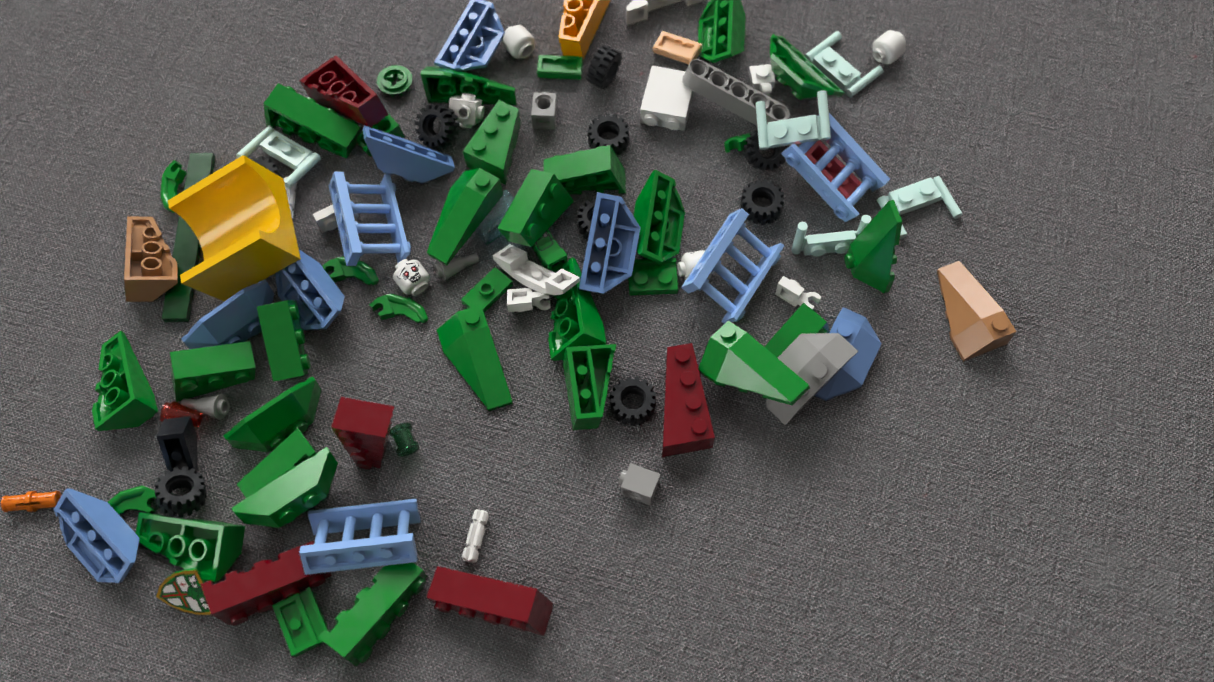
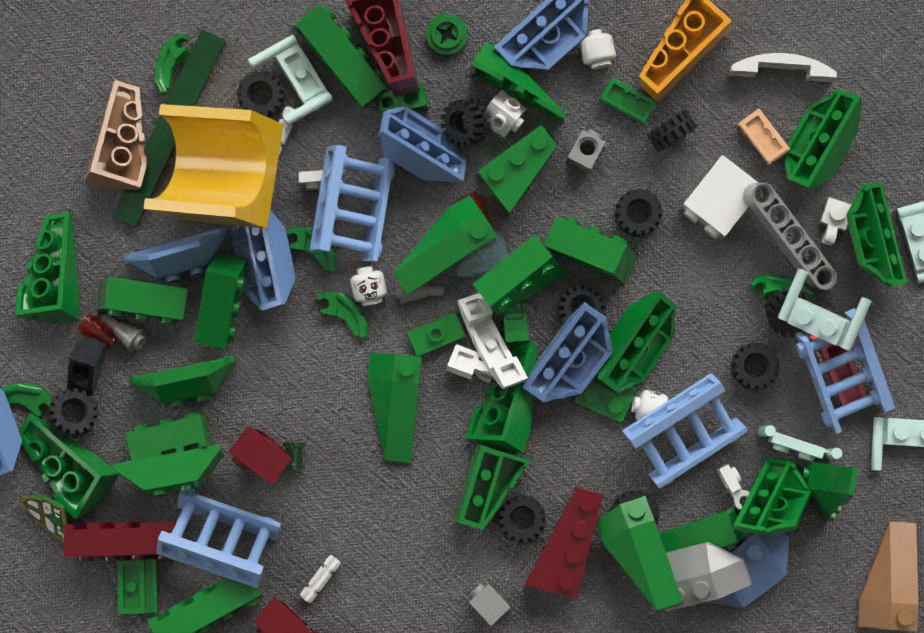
camera: 25 degrees right, 20 degrees up
(838, 284) = (774, 500): none -> green wedge

